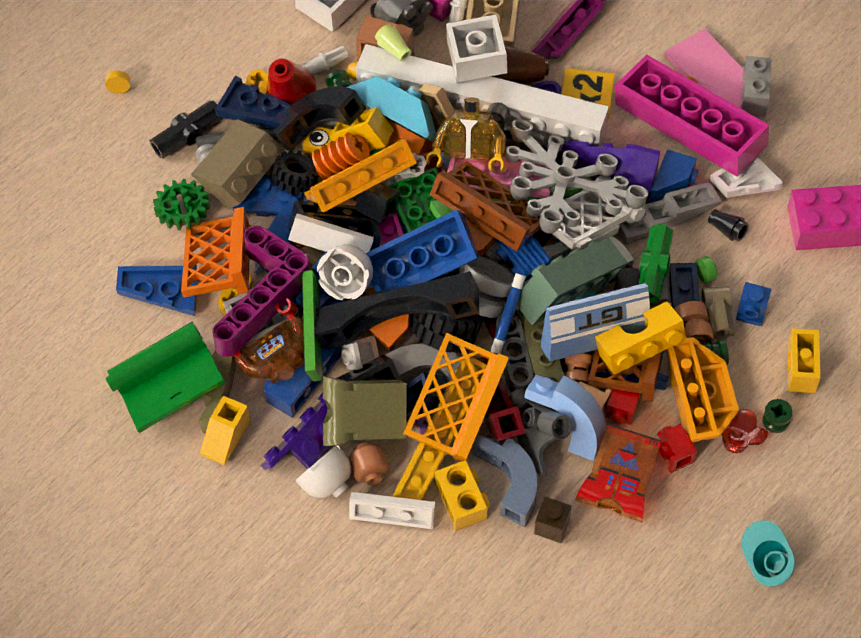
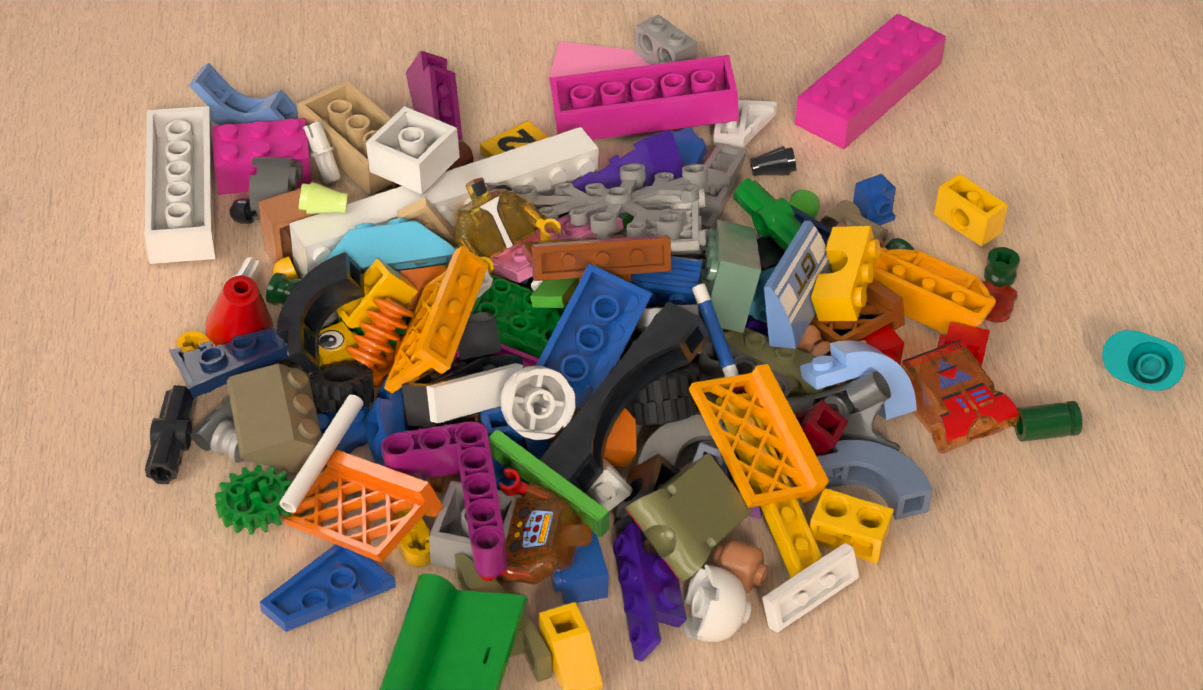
camera: 50 degrees left, 15 degrees down
(117, 82) = (36, 446): yellow tile -> none
(232, 205) = (321, 454): none -> white piece
(552, 519) = (952, 478): dark brown brick -> none
(661, 537) = (1048, 421): none -> dark green piece

